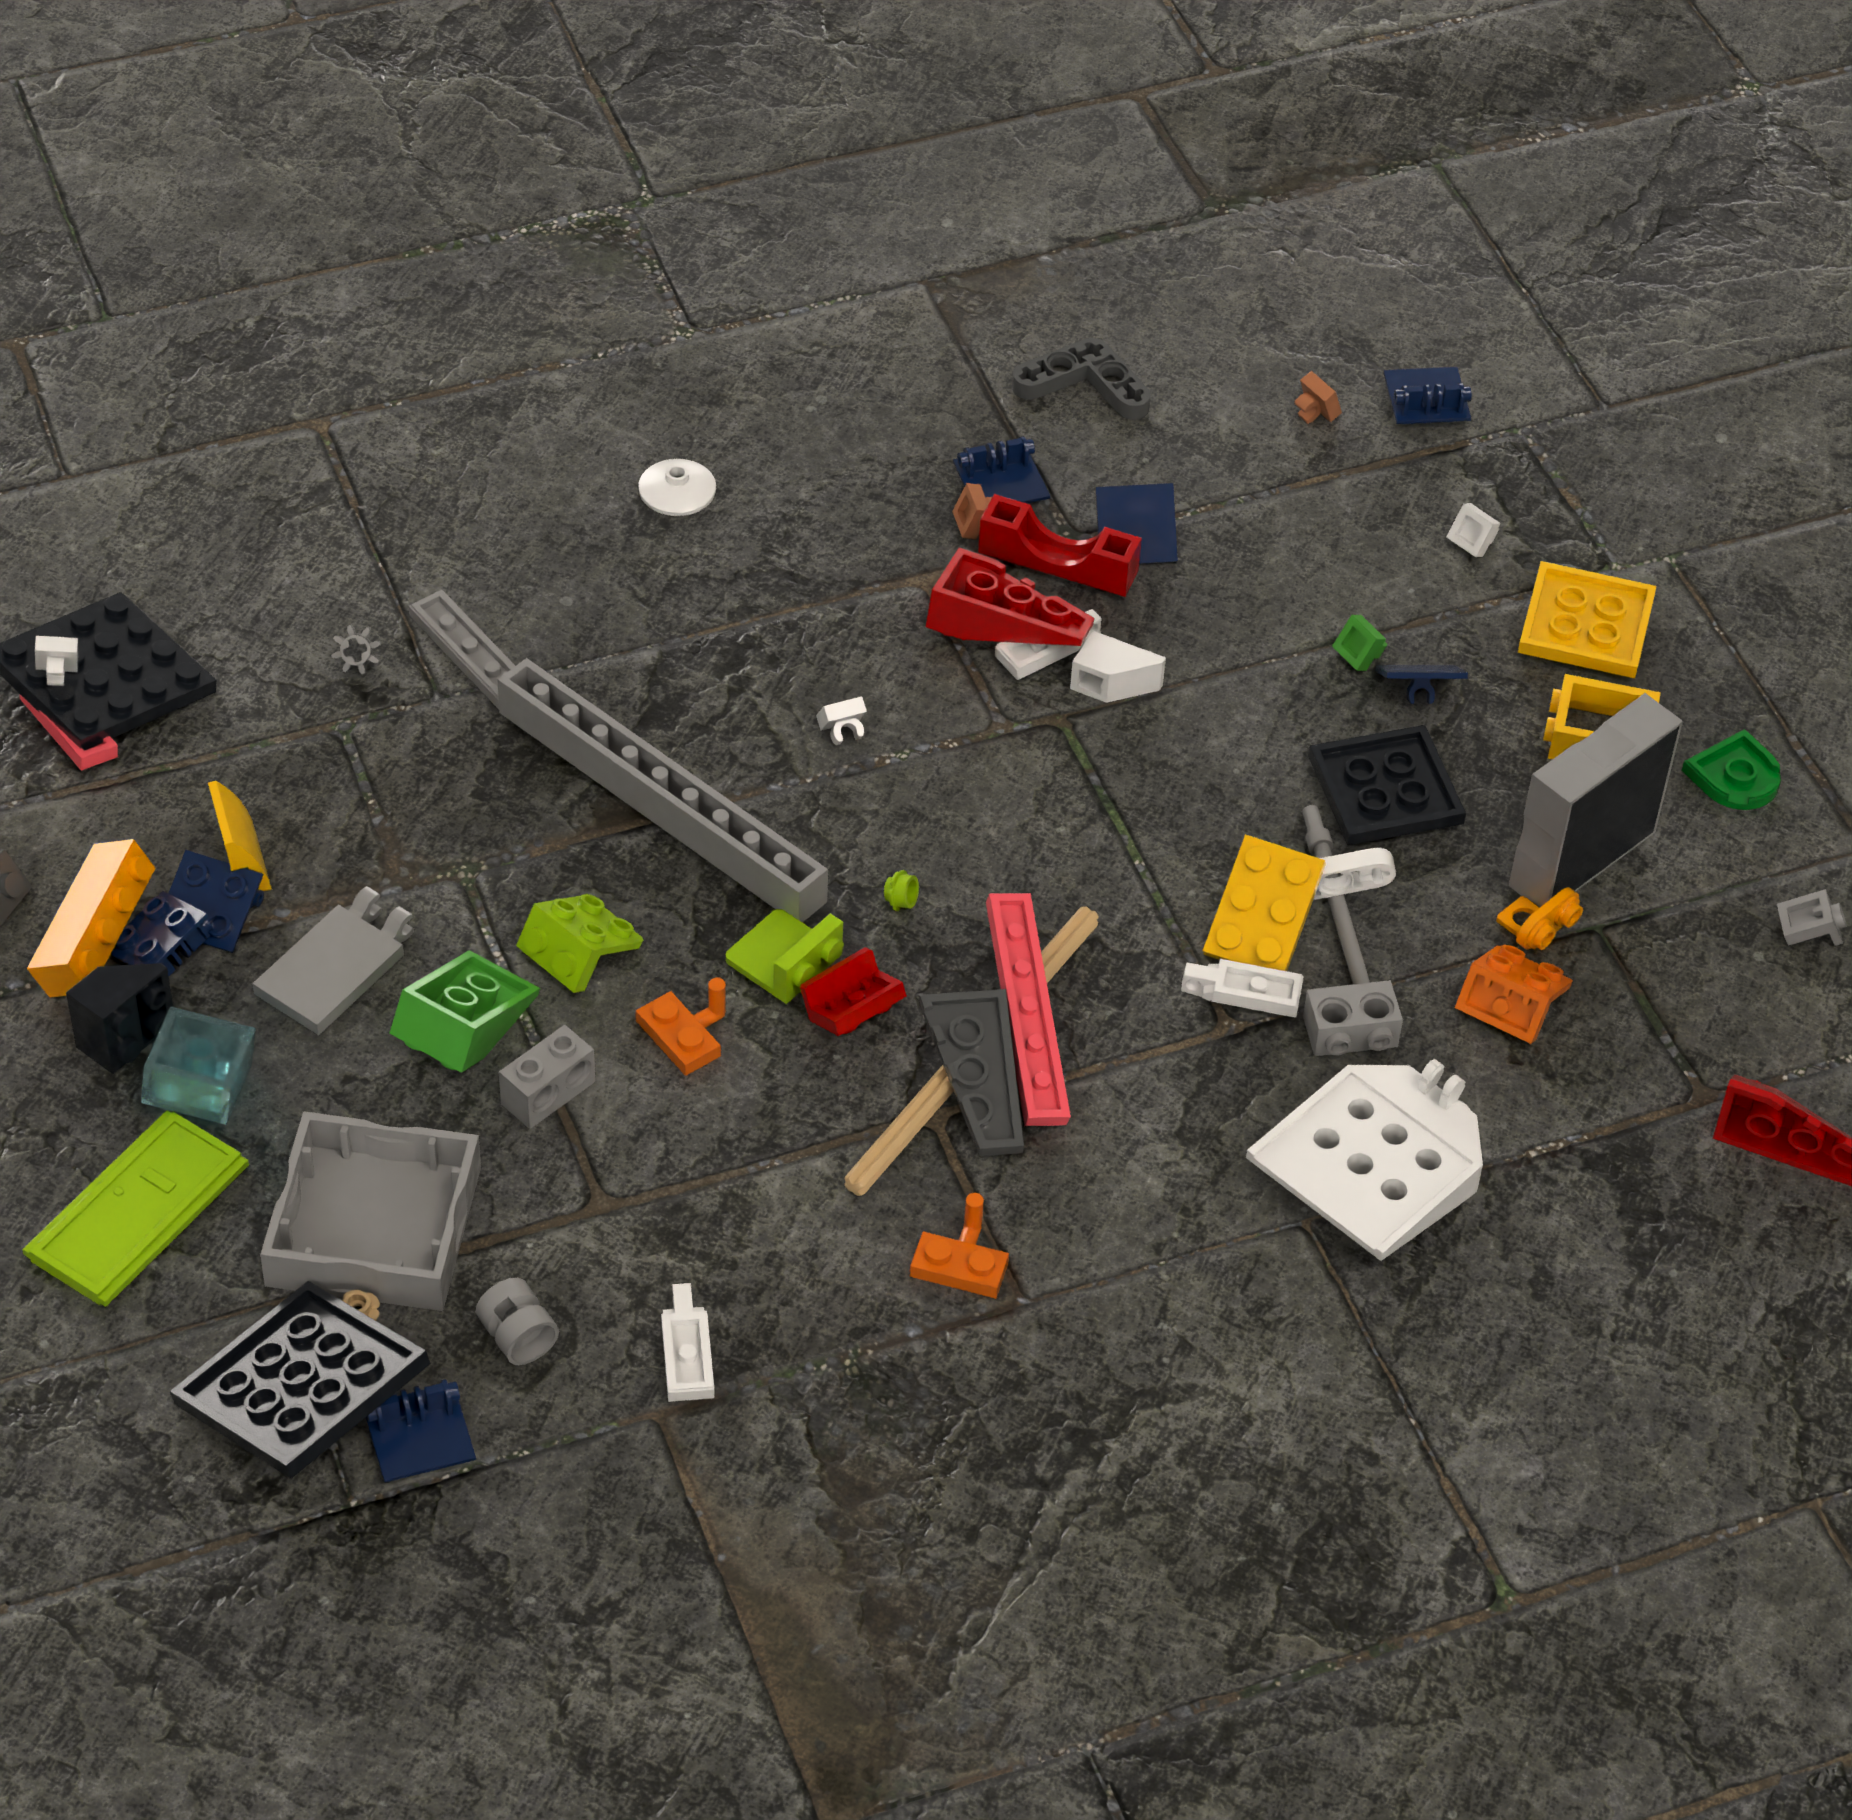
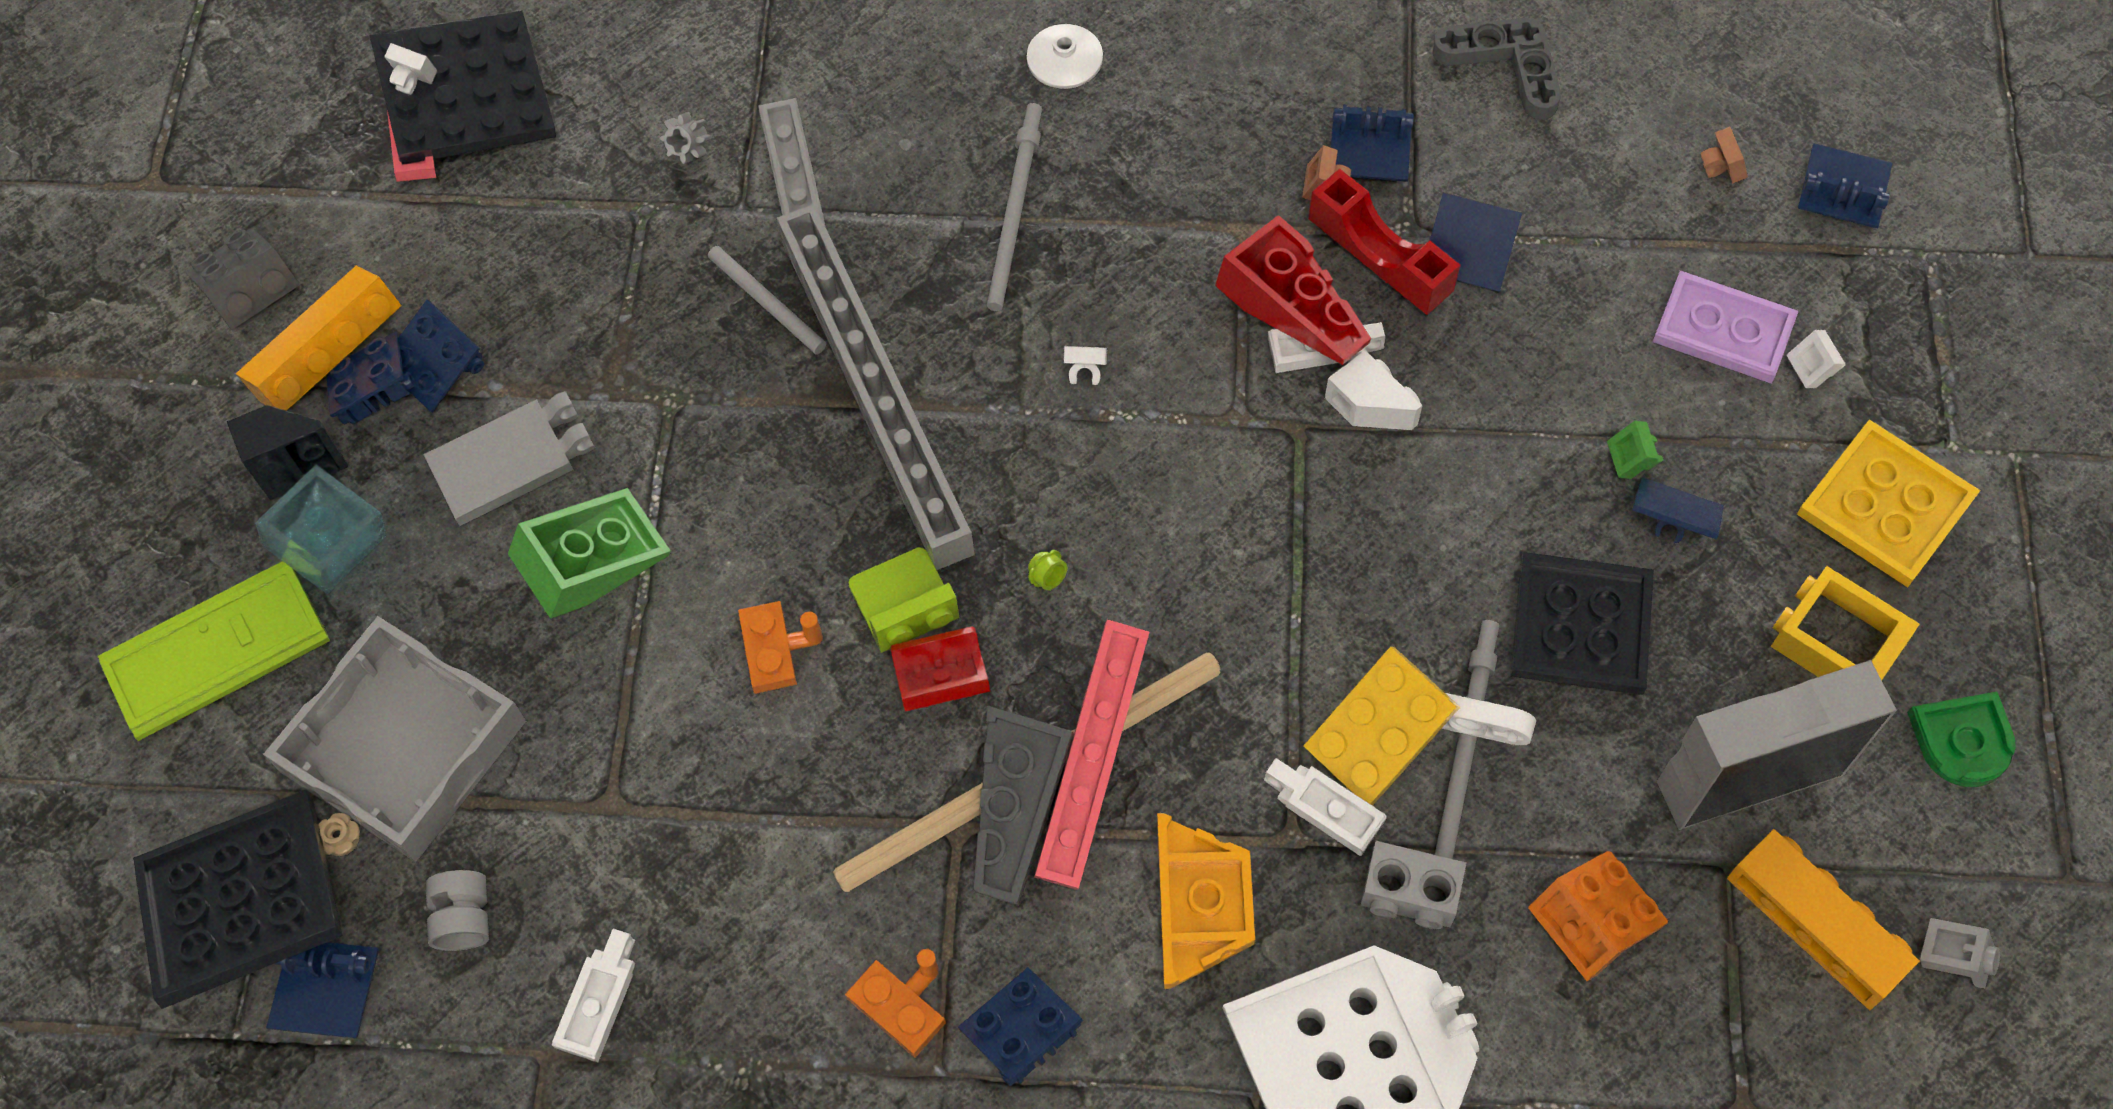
camera: 30 degrees right, 15 degrees up
(238, 832) = (477, 301): yellow slope -> none
(510, 761) = (767, 300): none -> light grey bar
(547, 1076) = (618, 654): light grey brick -> none
(572, 935) = (726, 508): lime bracket -> none
(686, 566) = (1026, 143): none -> light grey bar
(1080, 1236) = (1021, 1026): none -> dark blue hinge
(1180, 1090) = (1202, 900): none -> light orange wing
(1384, 531) = (1725, 326): none -> lavender tile
(1544, 921) = (1654, 855): light orange bracket -> none
(1693, 932) = (1823, 919): none -> light orange brick

